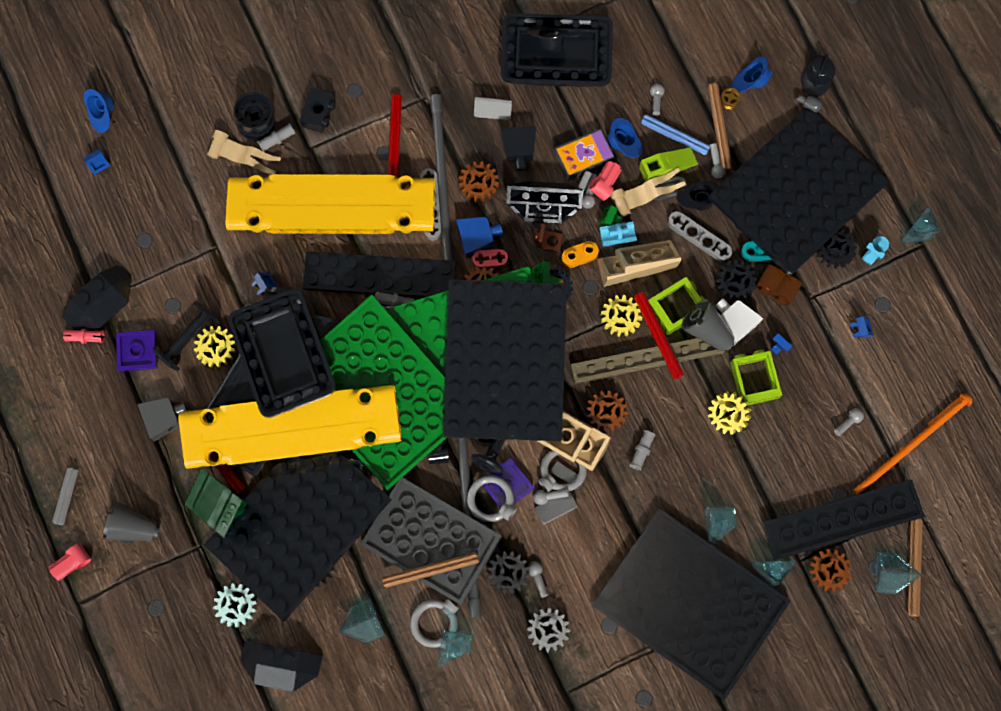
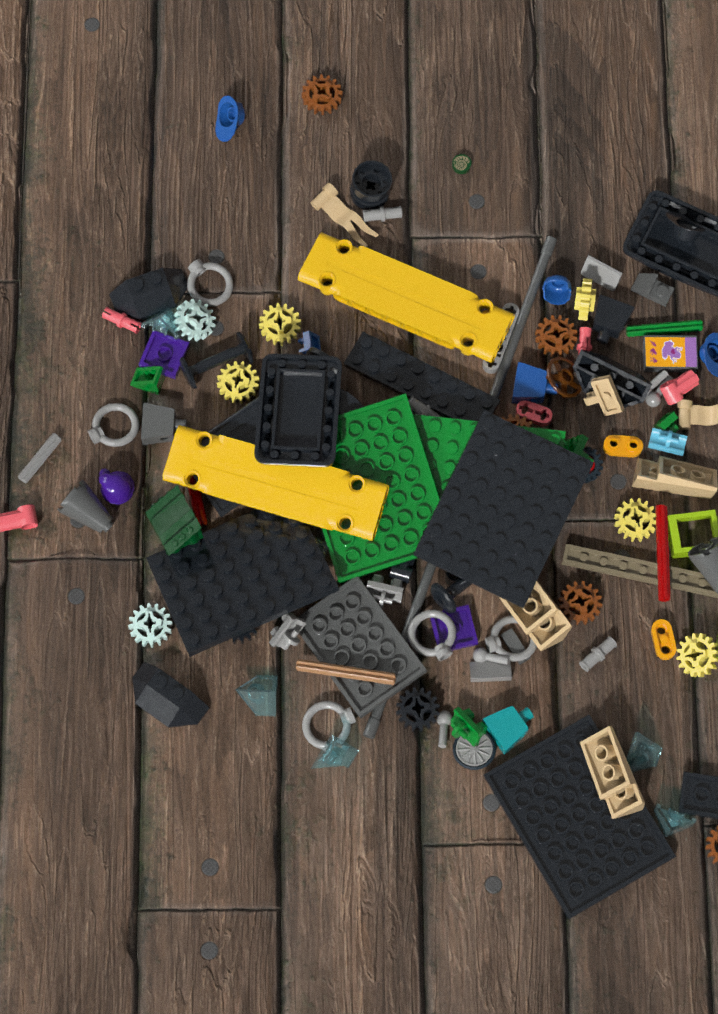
camera: 25 degrees right, 5 degrees down
(96, 162) = (204, 165): blue tile -> none
(106, 449) = (97, 434): none -> light grey piece
(124, 321) = (163, 322): none -> clear light blue slope
(132, 258) = (198, 268): none -> light grey piece
(133, 379) = (149, 379): none -> green slope
(146, 313) = (194, 320): none -> light aqua gear
(147, 491) = (116, 486): none -> dark purple piece
(178, 57) = (320, 101): none -> dark orange gear
(236, 273) = (270, 324): none -> light yellow gear
(317, 99) = (437, 195): black brick -> none
(326, 62) = (461, 164): none -> dark green tile
(363, 557) = (287, 633): none -> light grey hips
(395, 125) = (496, 258): red axle -> none
(433, 480) = (383, 592): none -> light grey hips
(461, 140) = (557, 290): none -> blue hair
(490, 138) = (585, 299): none -> light yellow gear
(503, 215) = (564, 376): none -> reddish brown wheel
(505, 175) = (584, 339): none -> coral pin
(542, 236) = (593, 414): copper bracket -> none
(543, 103) = (652, 289): none -> dark grey slope
(546, 214) = (604, 394): none -> tan plate
(552, 621) = (424, 784): light grey gear -> none
(557, 570) = (464, 726): none -> green hips
(568, 133) = (664, 328): none -> green axle
(573, 585) = (474, 757): none -> light grey wheel
(594, 552) = (508, 727): none -> teal torso
(695, 410) = (663, 640): none -> light orange plate
(704, 553) = (612, 773): none -> tan slope

